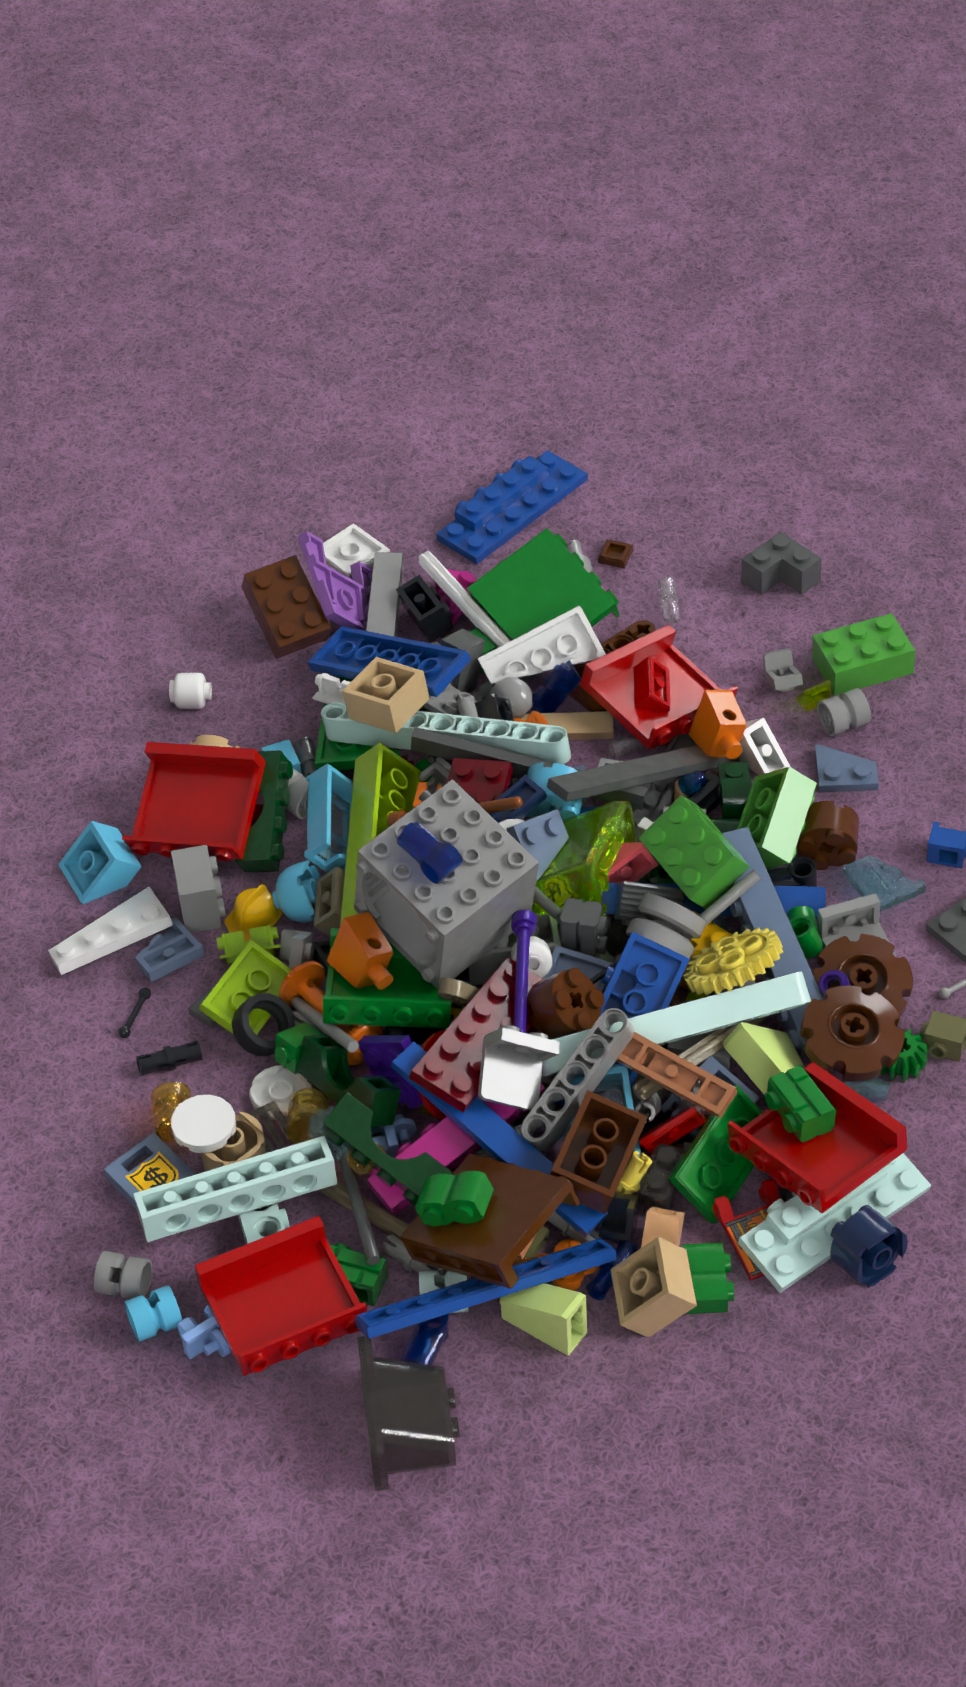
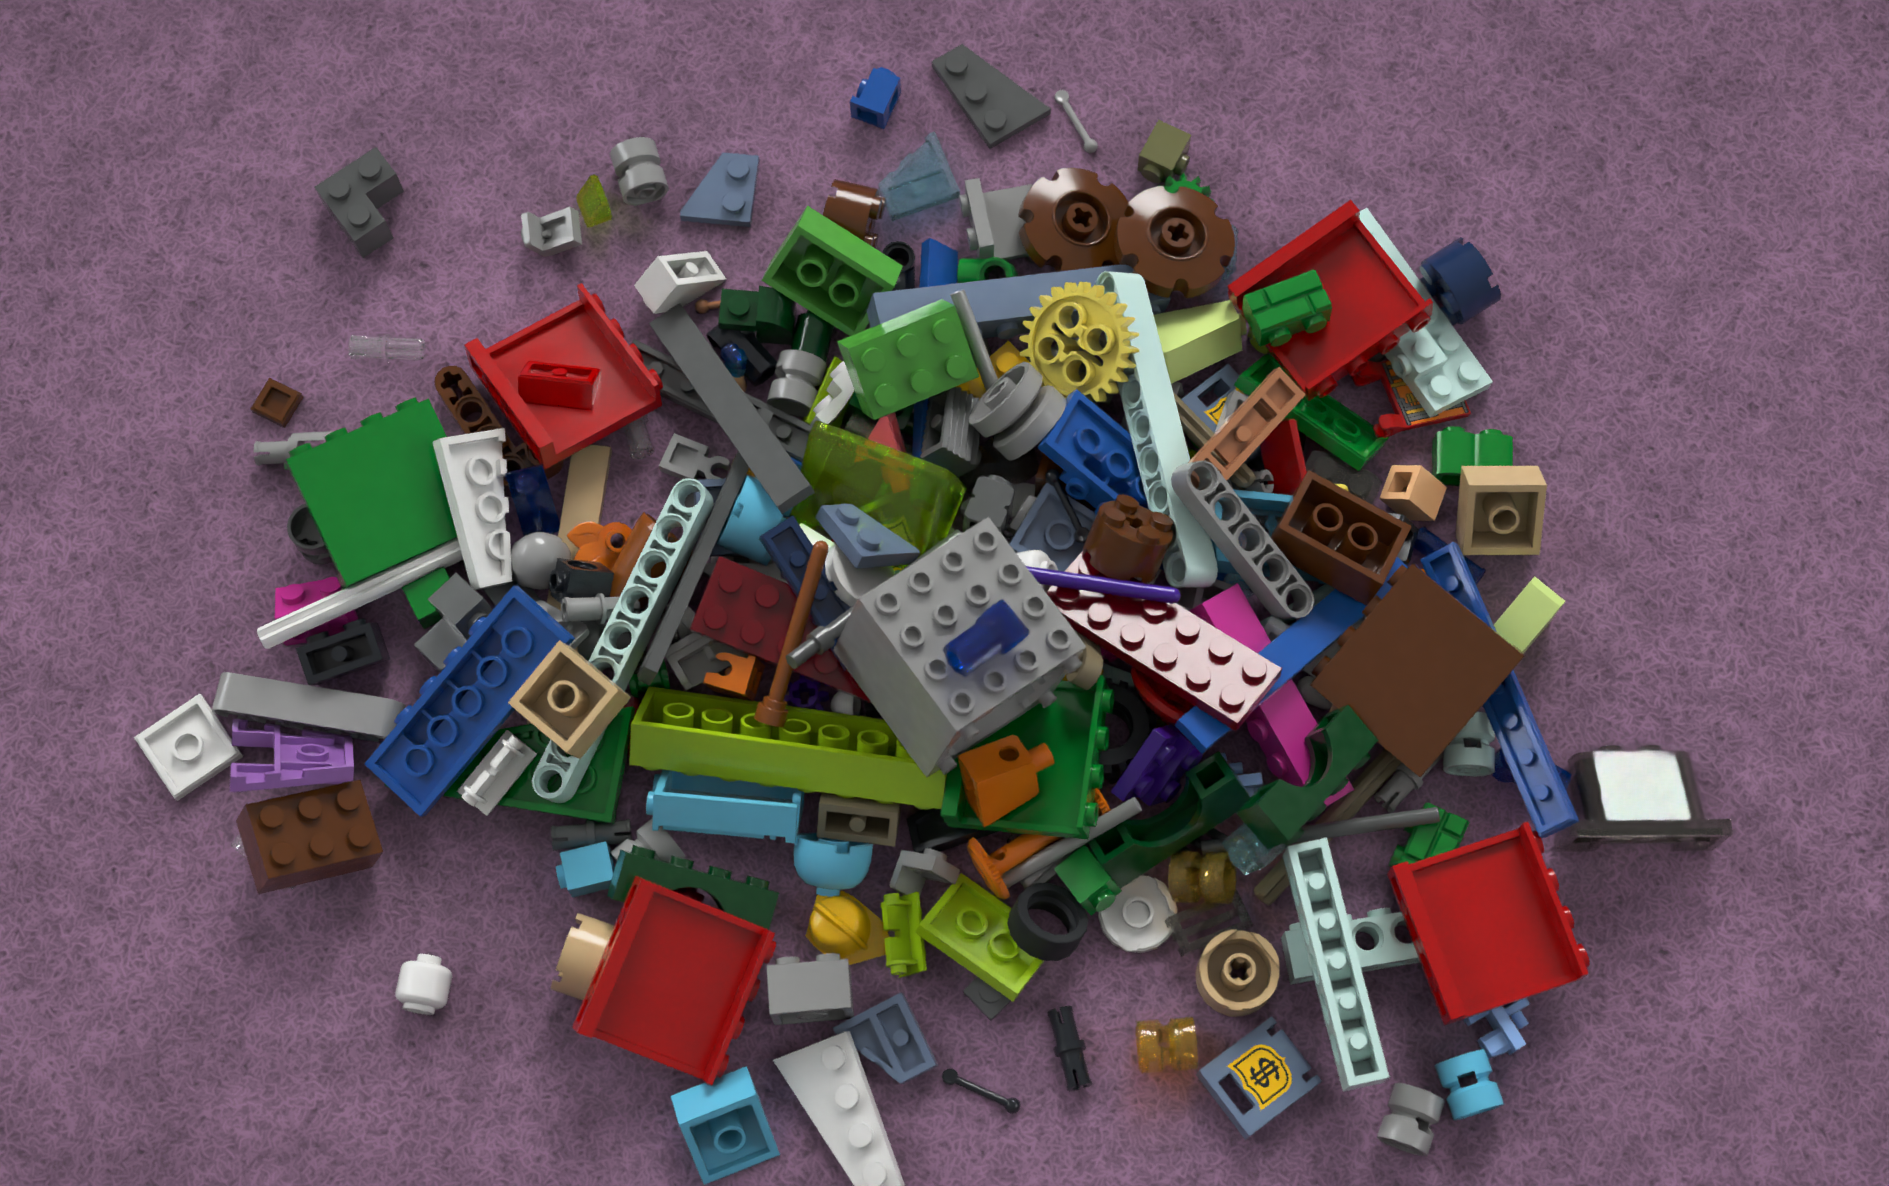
camera: 85 degrees left, 25 degrees up
(203, 1123) = (1223, 999): white tile -> none
(454, 1198) = (1405, 701): green brick -> none
(509, 504) = (149, 524): blue plate -> none
(514, 1066) = (1233, 609): bracket -> none
(718, 725) = (660, 311): orange torso -> none
(831, 977) = (1105, 245): dark purple plate -> none
(863, 654) = (543, 132): bright green brick -> none

